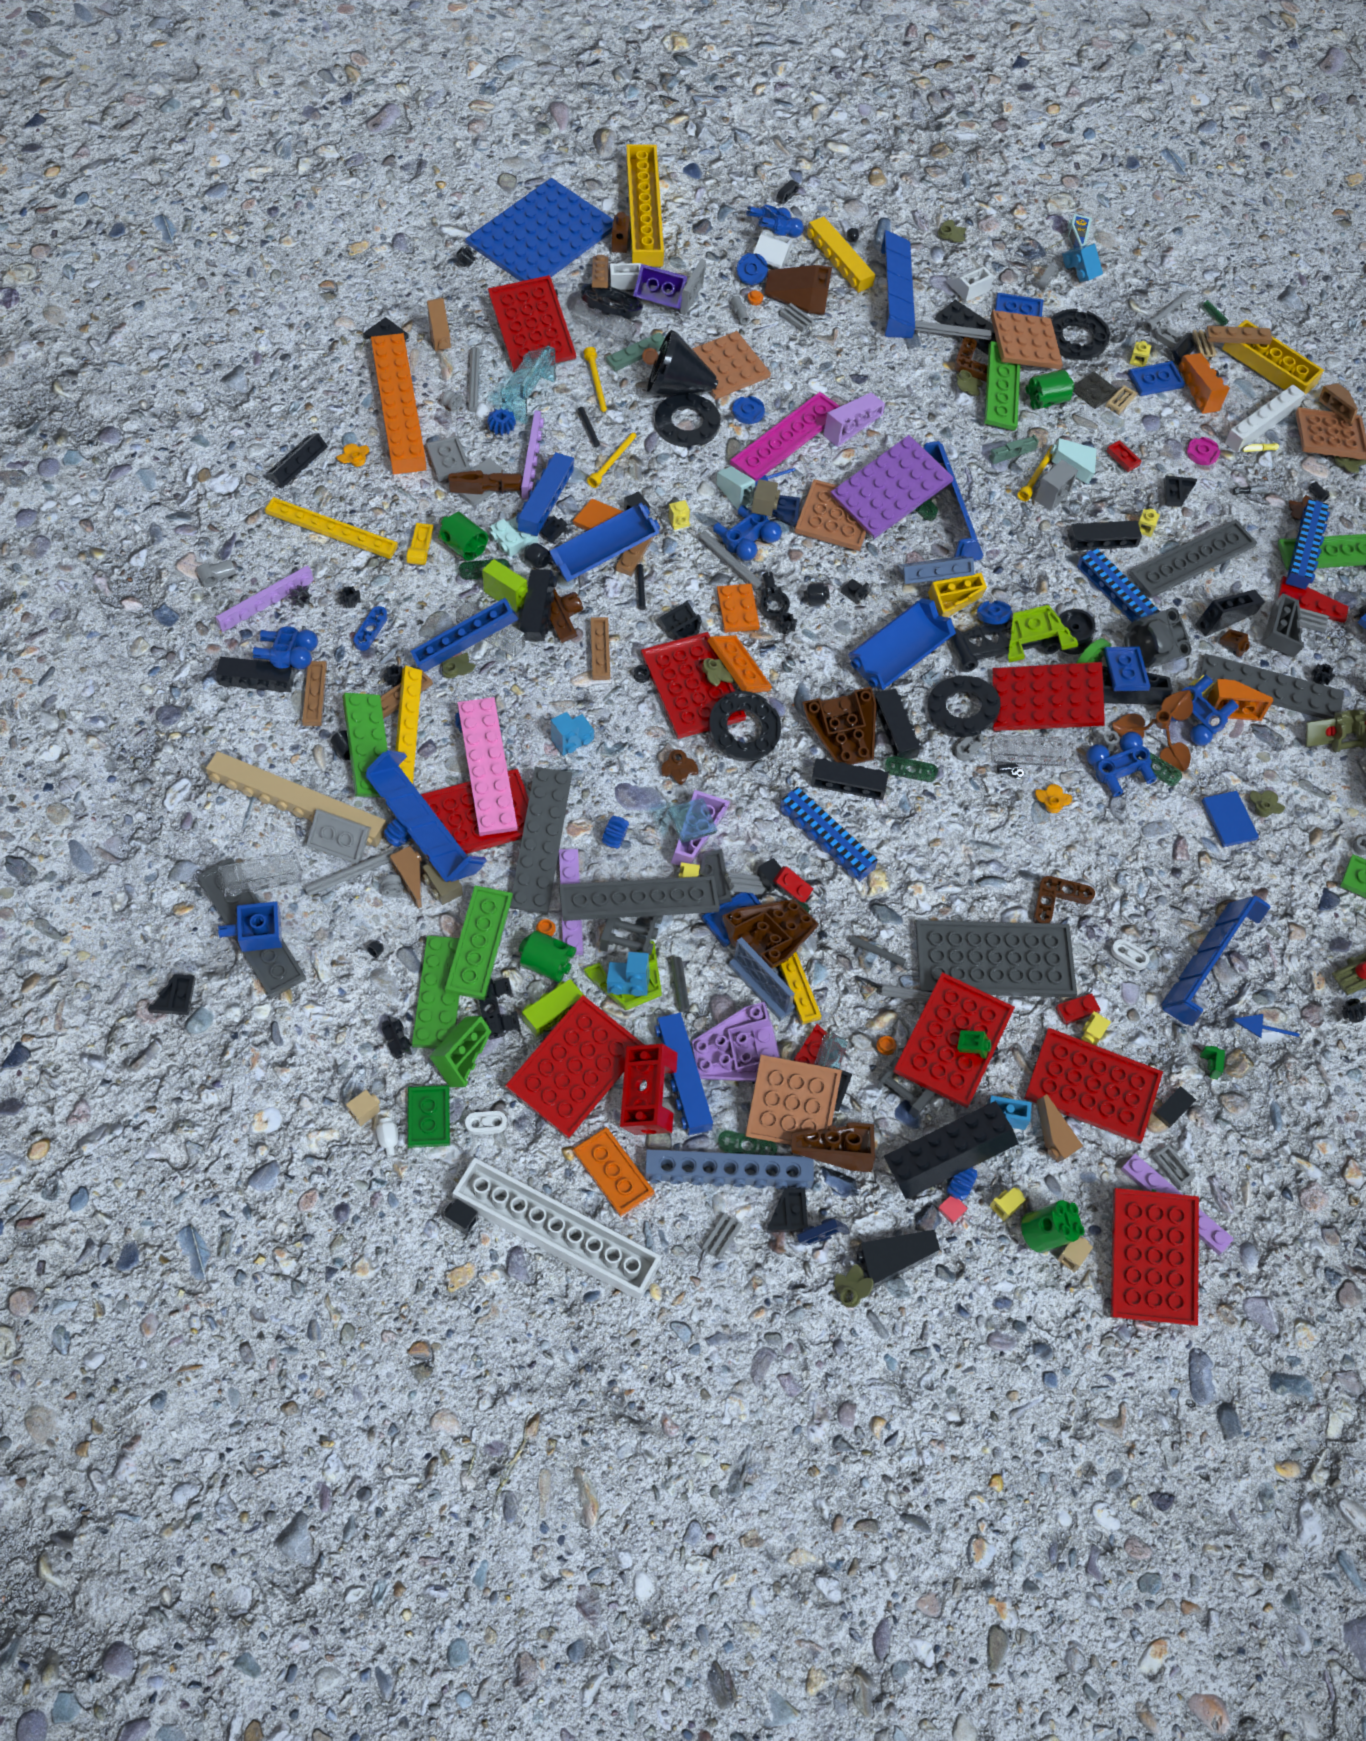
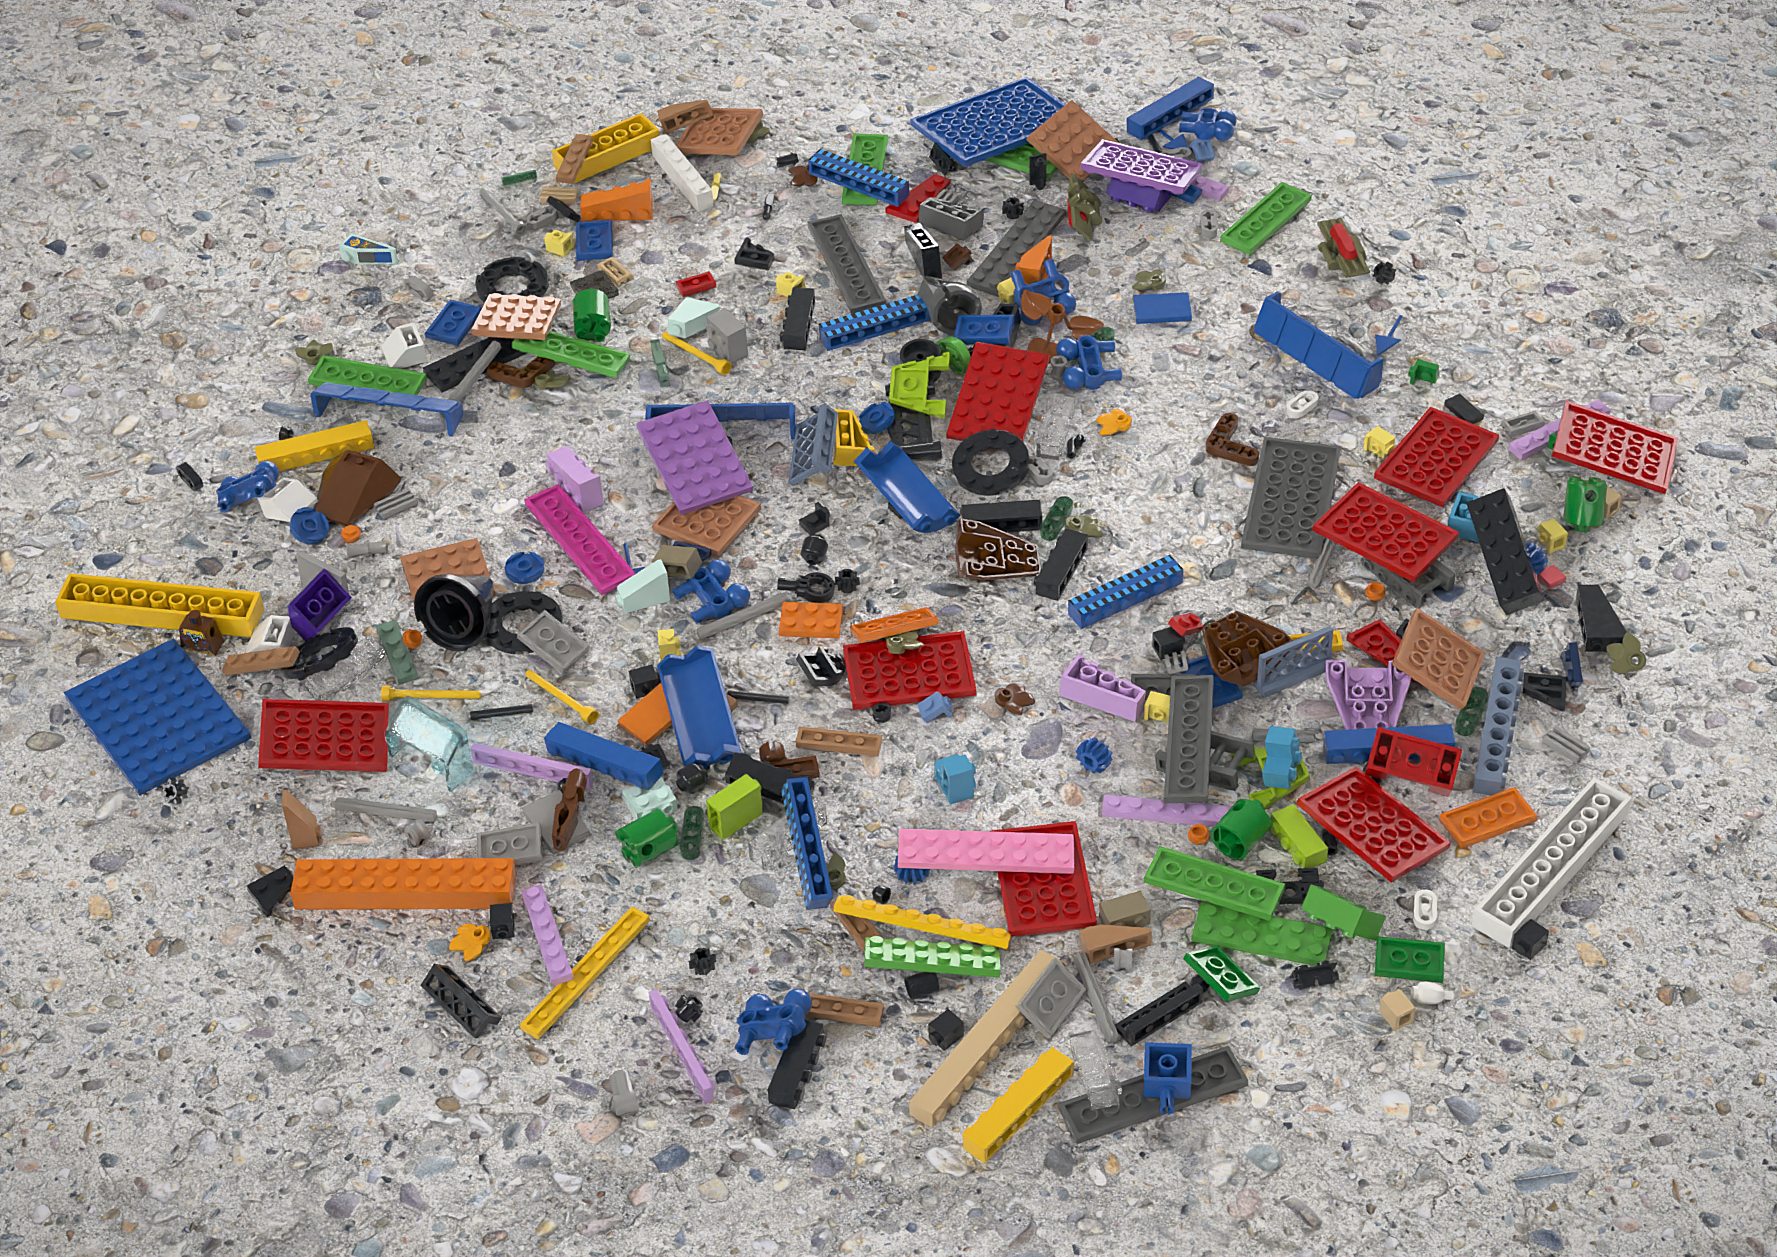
camera: 70 degrees left, 15 degrees down
(176, 996) = (1233, 1171): black wing -> none
(227, 828) = (1017, 1104): none -> yellow brick
(300, 769) = (945, 1030): none -> black brick
(338, 925) = (1162, 1015): none -> black fence
(362, 496) = (547, 935): none -> lavender plate
(370, 635) = (754, 957): blue beam -> none
(371, 467) = (502, 921): none -> black brick
(384, 962) = (1221, 973): none -> green tile
(393, 675) = (832, 929): black gear -> none
(396, 833) = (1055, 939): blue gear -> none
(420, 544) = (641, 886): yellow plate -> none
(420, 819) = (1049, 915): blue piece -> none
(438, 704) = (881, 894): none -> black hinge
(501, 421) = (469, 788): blue gear -> none
(541, 840) = (1088, 818): dark grey plate -> none
(654, 710) = (934, 706): none -> medium blue bracket
(665, 441) = (553, 642): none -> light grey tile
(692, 820) = (1101, 682): clear light blue tile -> none
(751, 703) = (997, 650): black plate -> none
(831, 1051) = (1383, 629): clear light blue slope -> none
(844, 1147) = (1485, 633): reddish brown wedge -> none
(877, 950) = (1266, 581): dark grey bar -> none
(904, 793) = (1085, 524): none -> olive plate
(930, 269) = (366, 375): none -> bright green plate
(974, 1042) = (1398, 512): green bracket -> none
(1056, 1132) = (1482, 484): medium nougat slope -> none
(1077, 1009) = (1353, 452): red plate -> none
(1085, 260) = (412, 250): dark azure brick -> none
(1203, 451) = (705, 228): dark pink tile -> none

